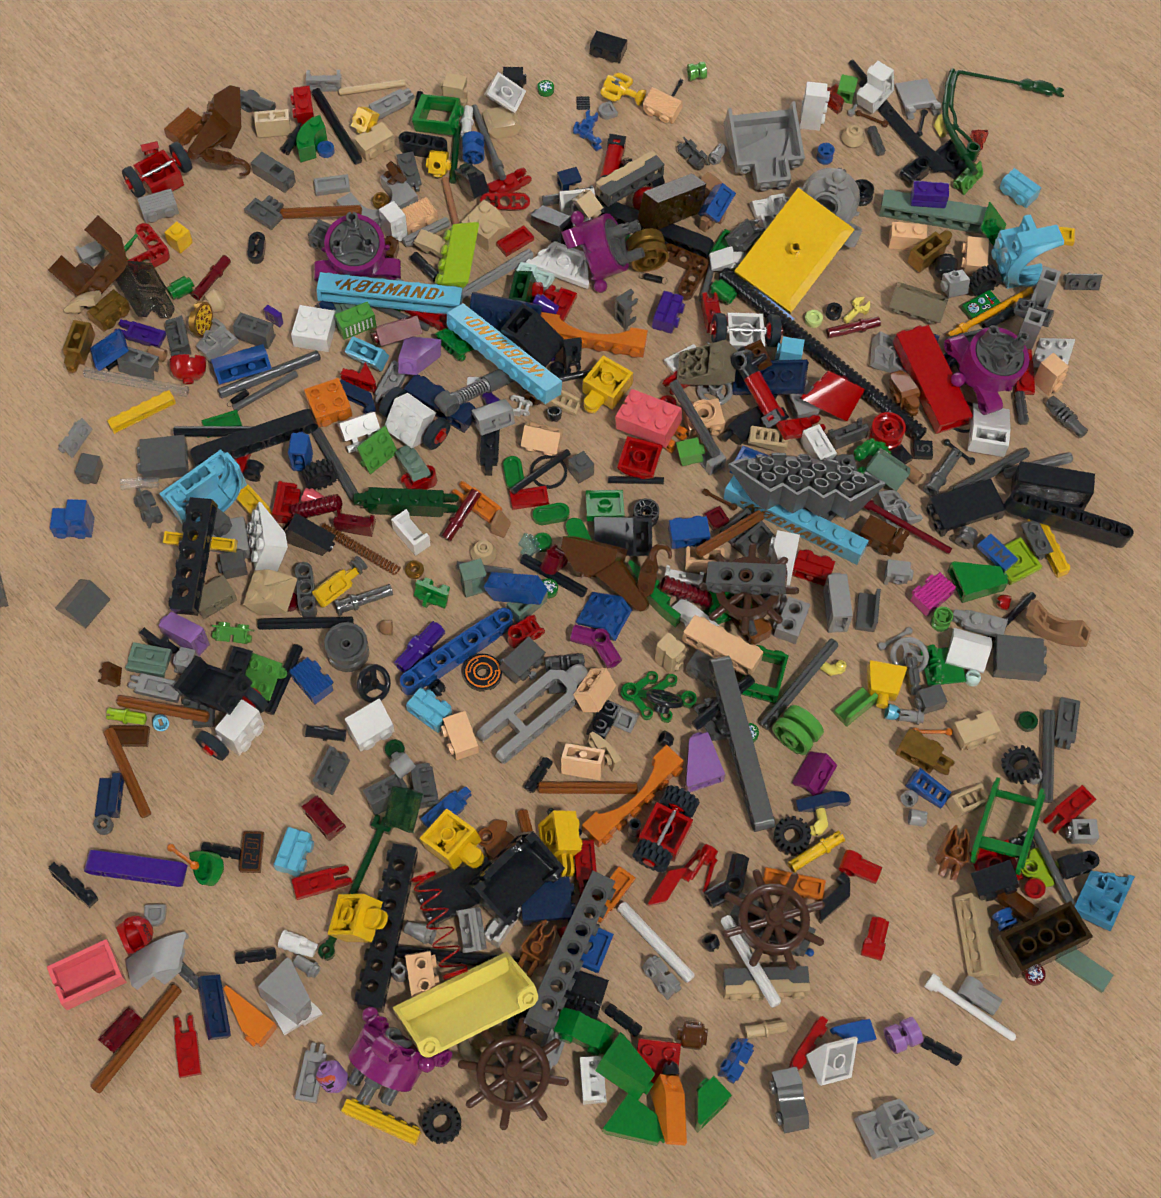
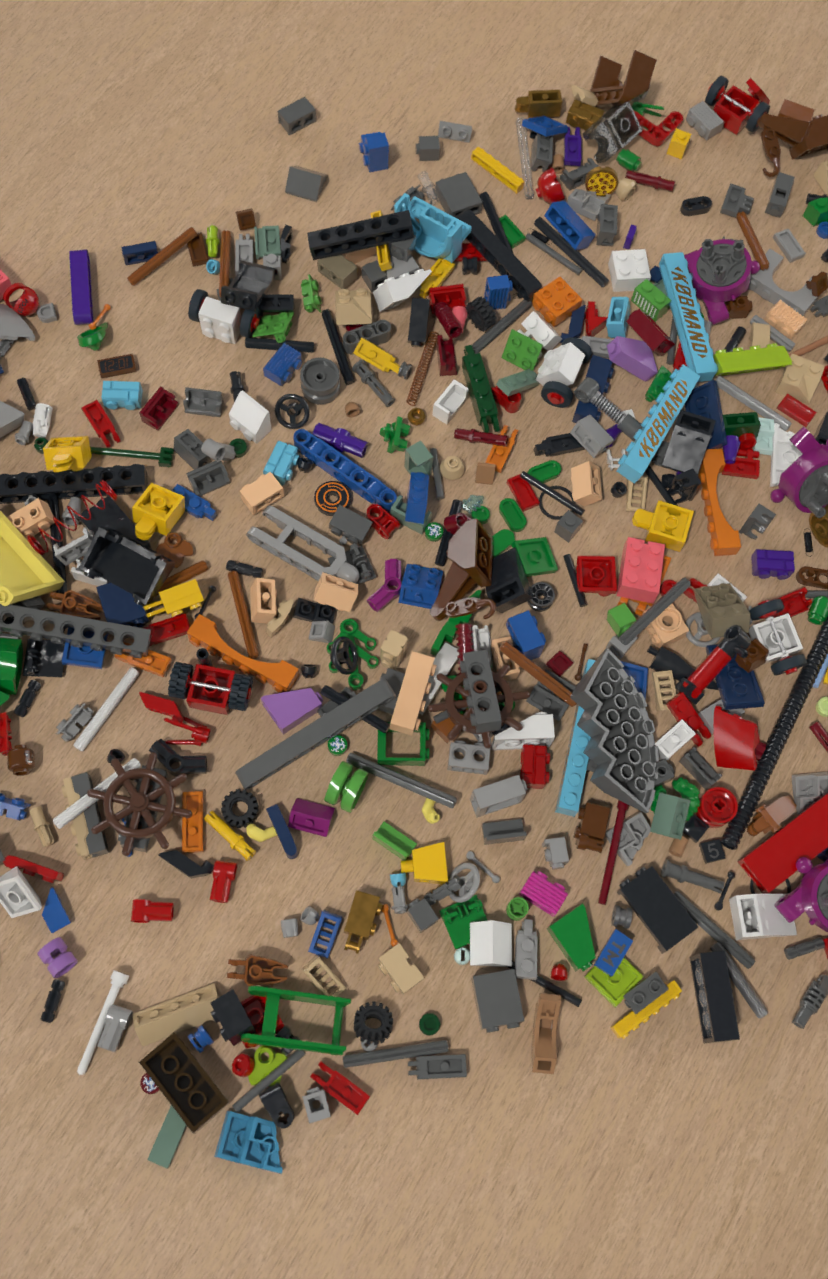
camera: 70 degrees right, 5 degrees up
(74, 886) = (57, 247): black hinge -> none
(110, 825) = (113, 250): dark grey bush -> none
(184, 632) = (295, 259): medium lavender slope -> none
(222, 850) = (112, 342): black axle -> none
(380, 196) = (789, 285): pearl gold plate -> none
(393, 221) = (766, 298): white brick -> none
(402, 808) = (178, 463): clear green panel -> none
(790, 349) = (771, 686): medium azure brick -> none
(1019, 905) = (220, 1054): reddish brown slope -> none
(1068, 518) = (685, 1032): black beam -> none

